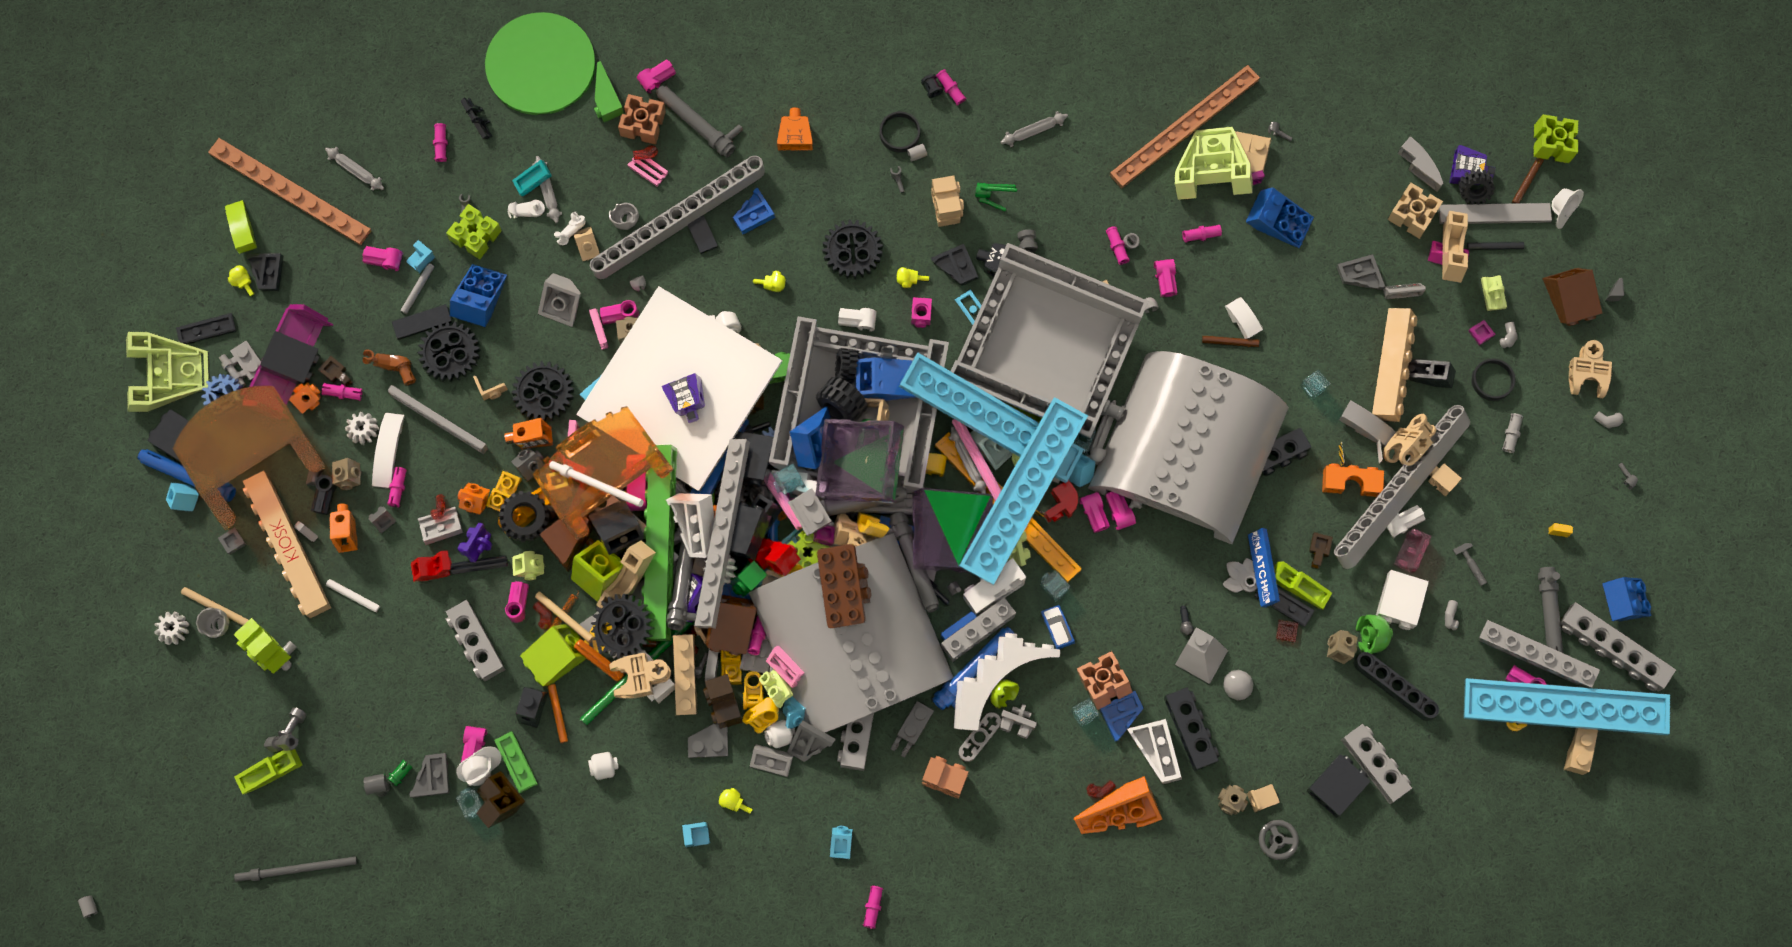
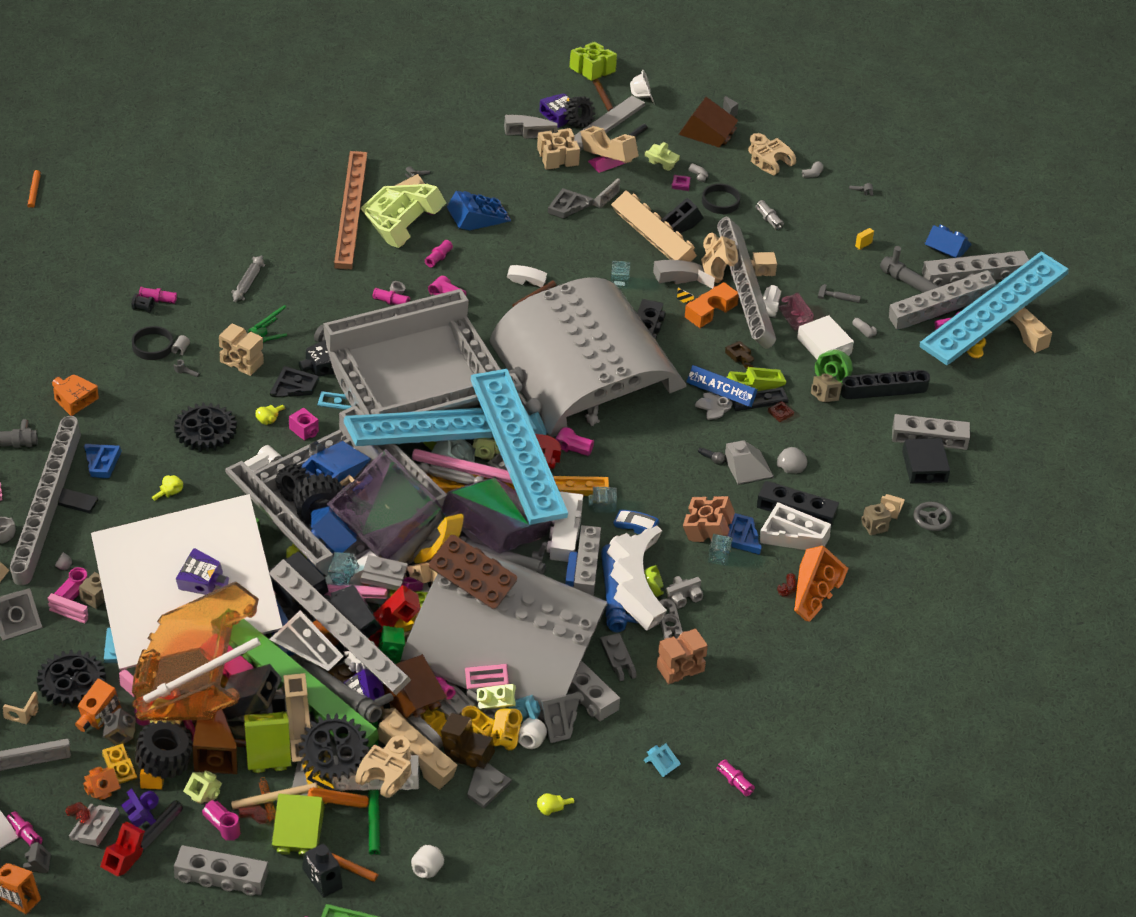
camera: 50 degrees left, 30 degrees down
(696, 834) = (551, 846): medium azure panel -> none
(771, 760) = (546, 757): light grey slope -> none
(1120, 512) = (591, 430): dark pink piece -> none

